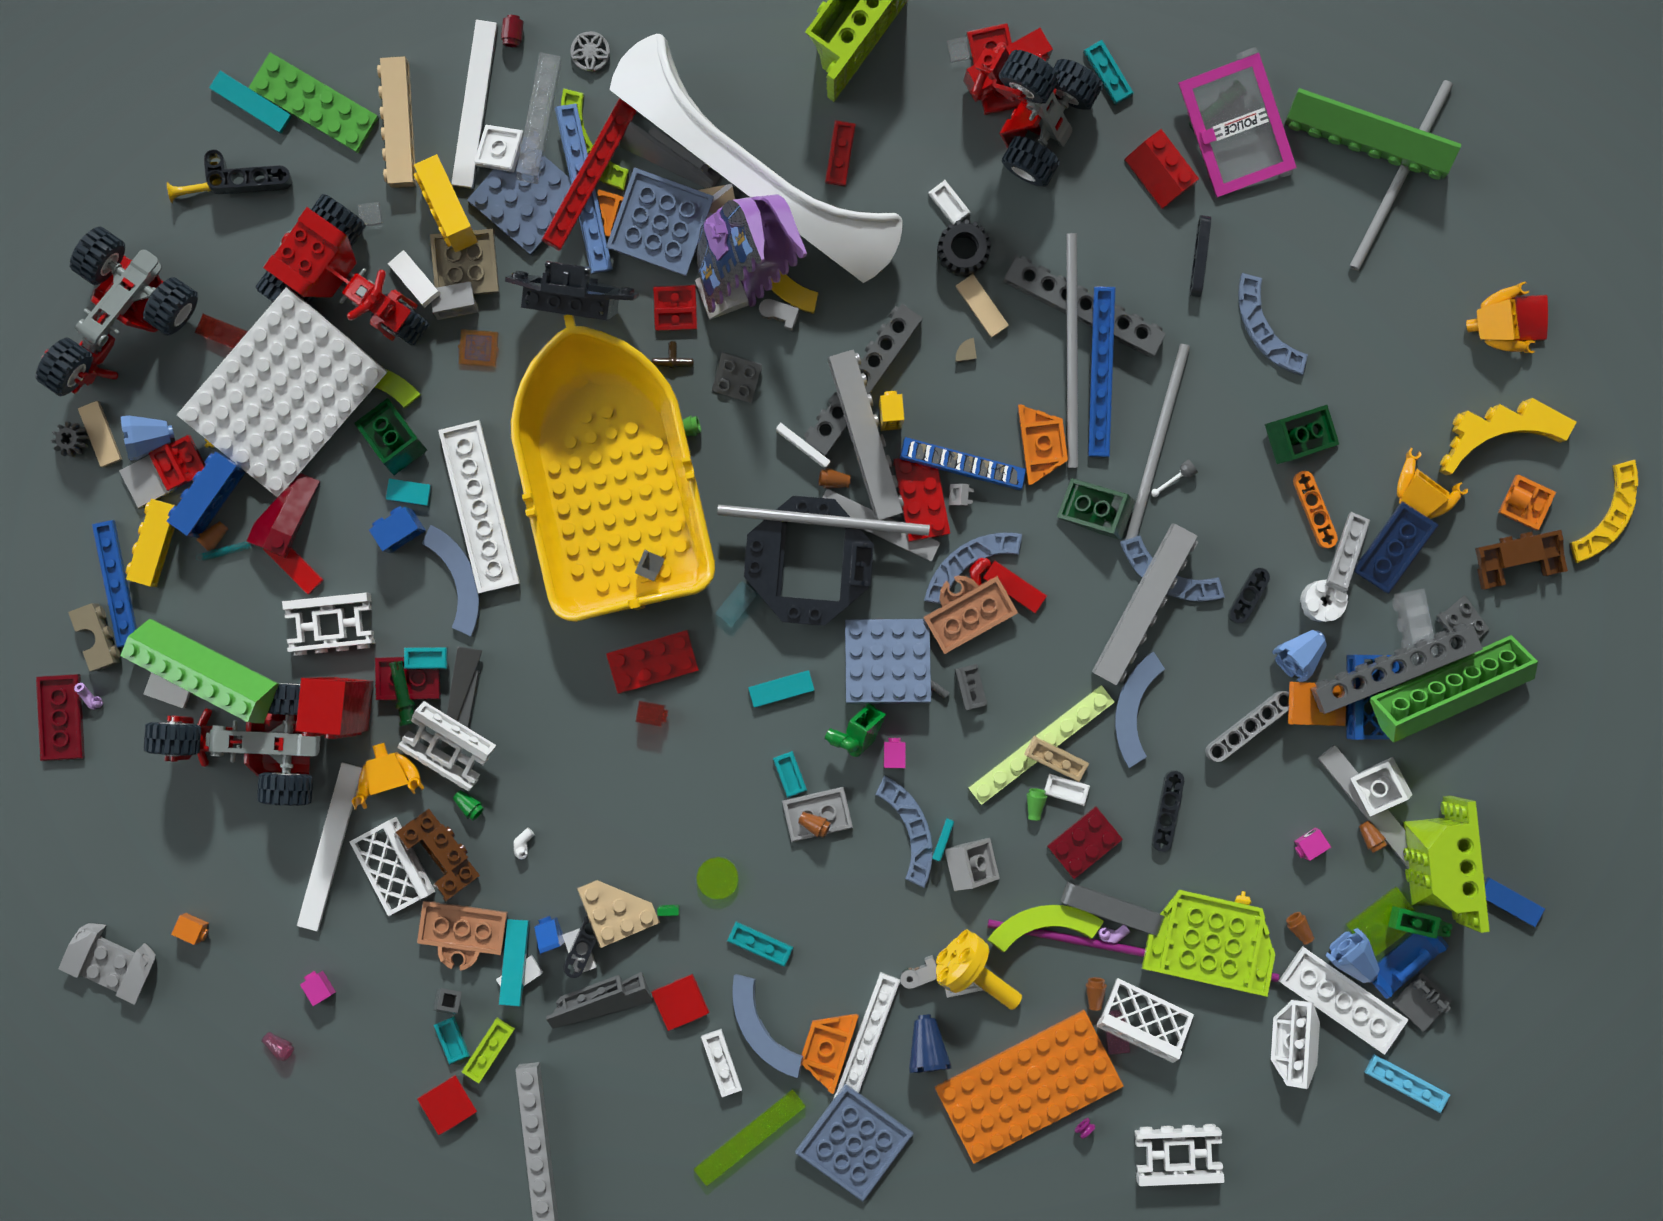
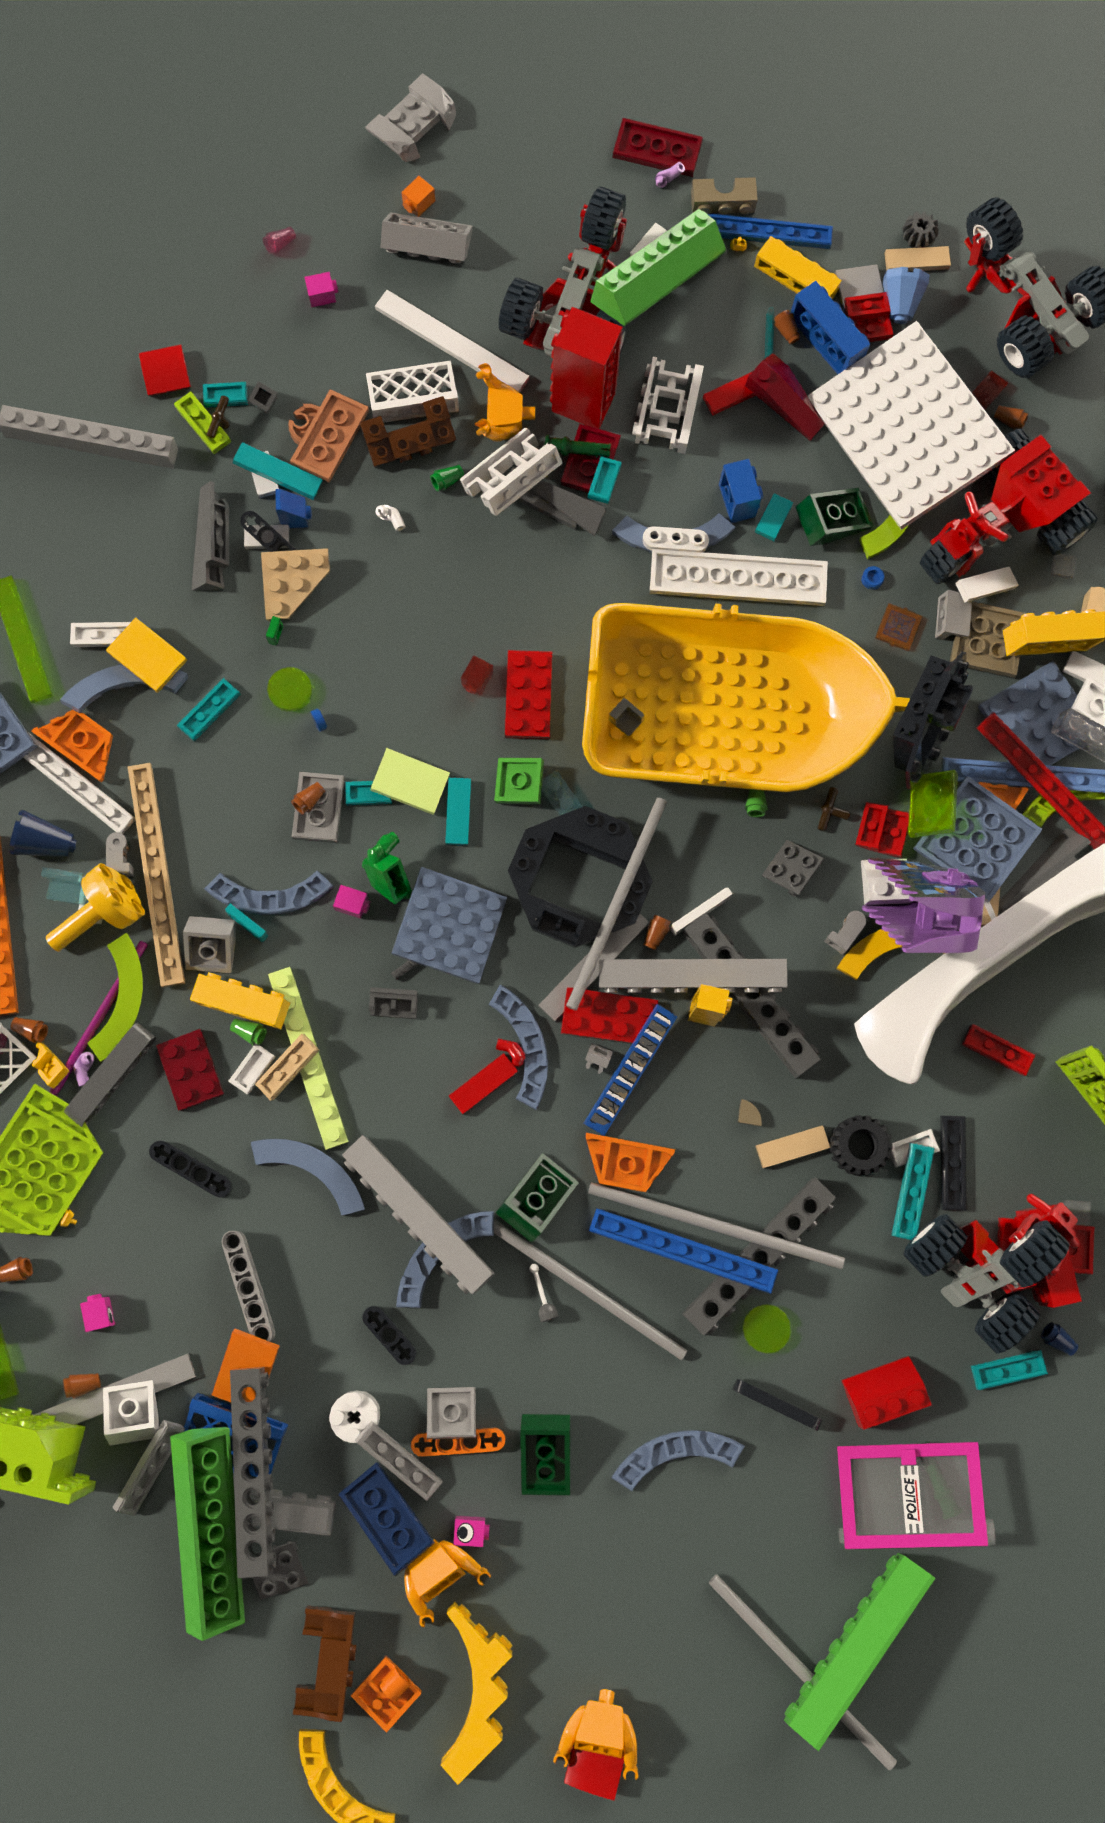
camera: 105 degrees right, 10 degrees down
(139, 608) = (738, 244): none -> yellow rock
(229, 907) = (426, 237): none -> light grey slope
(237, 300) = (1011, 417): none -> dark orange cone
(438, 384) = (872, 577): none -> blue tile
(468, 582) = (666, 542): none -> white plate
(481, 1035) = (218, 418): none -> dark brown piece
(641, 268) = (933, 804): none -> clear neon green tile
(680, 1002) = (180, 614): red slope -> none
(730, 1016) = (146, 655): none -> yellow tile
(737, 643) = (519, 780): none -> bright green plate
(738, 841) = (318, 719): none -> blue tile
(768, 740) = (410, 781): none -> yellowish green tile
(925, 934) = (156, 875): none -> tan plate
(951, 165) = (953, 1163): none -> black tile
(963, 1009) = (64, 886): none -> clear light blue panel
(968, 611) = (473, 1025): nougat plate -> none
(987, 193) = (912, 1191): none -> teal tile
(1014, 819) = (239, 1000): none -> yellow brick
(1070, 38) = (1058, 1338): none -> dark blue cone
(1121, 964) = (49, 1066): none -> yellow slope
(1140, 283) = (766, 1328): none -> clear neon green tile
(1295, 522) = (451, 1413): none -> light grey tile
(1301, 654) = (305, 1371): medium blue cone -> none
(1382, 475) = (470, 1531): none -> dark pink brick
(1419, 755) = (147, 1469): none -> light grey tile

